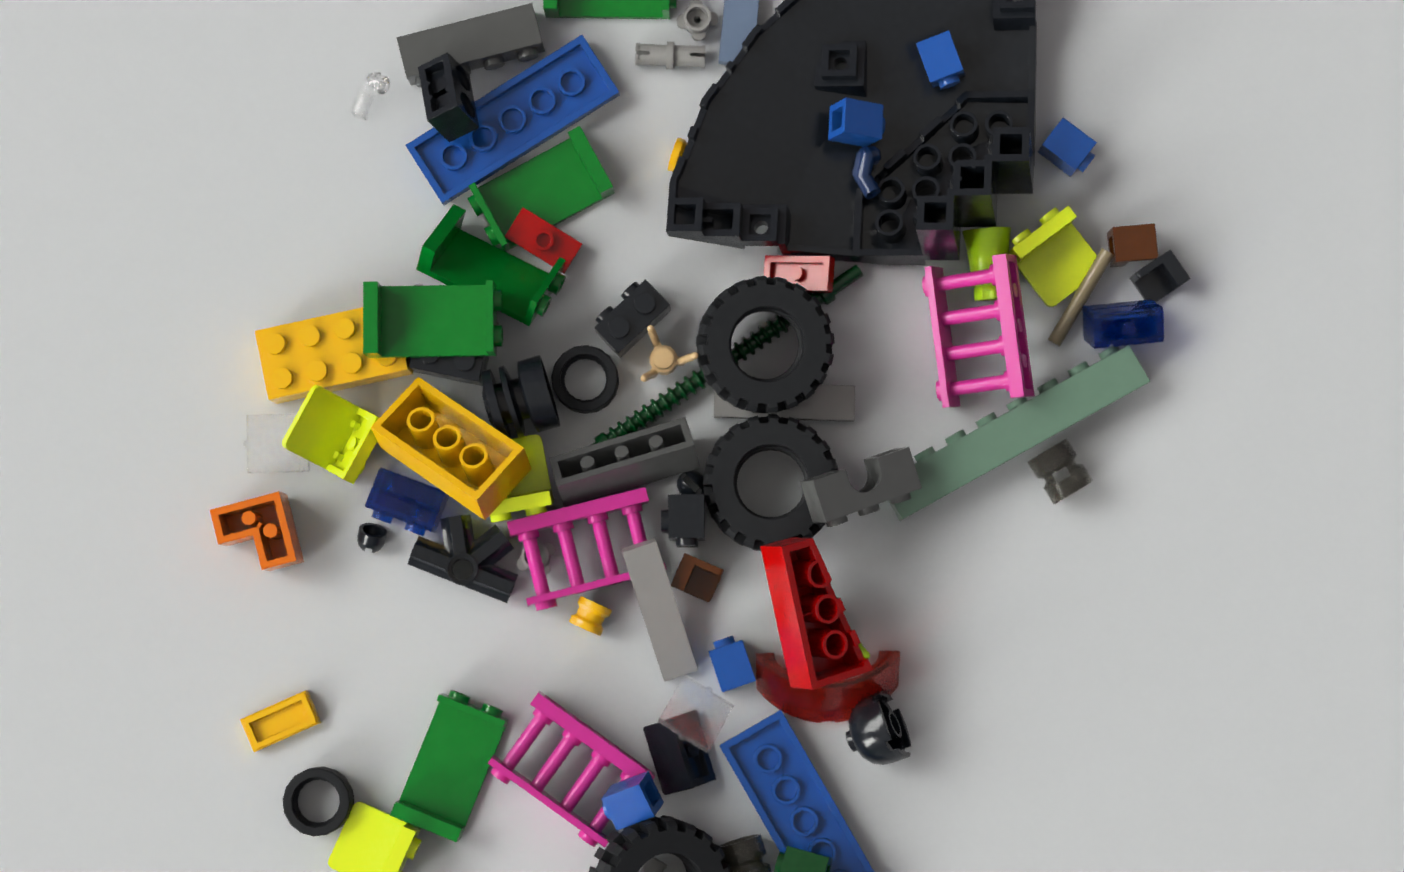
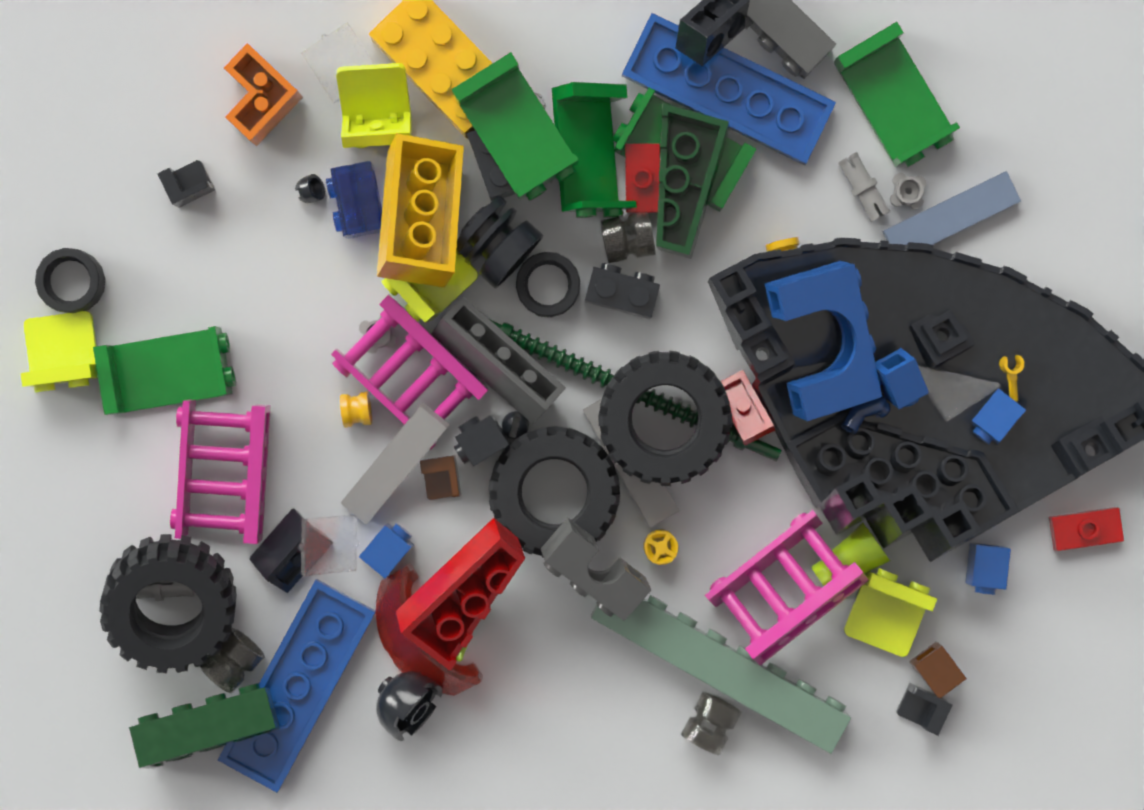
camera: 50 degrees right, 5 degrees up
(280, 721) = (116, 208): yellow tile -> none
(297, 643) = (186, 183): none -> black panel
(461, 545) = (348, 267): black piece -> none
(559, 194) = (687, 171): none -> dark green wedge
(582, 295) = (615, 239): none -> clear smoke wheel
(632, 801) = (224, 538): blue brick -> none
(664, 358) = (604, 339): tan plant -> none
(827, 160) = (853, 374): none -> blue arch
(881, 418) = (665, 550): none -> yellow wheel
(897, 83) = (955, 392): none -> clear tile
(910, 25) = (1012, 374): none -> yellow hand
(1080, 297) = (867, 653): dark tan bar -> none
(1086, 44) = (1086, 528): none -> red plate
(1123, 323) = (866, 702): clear blue brick -> none

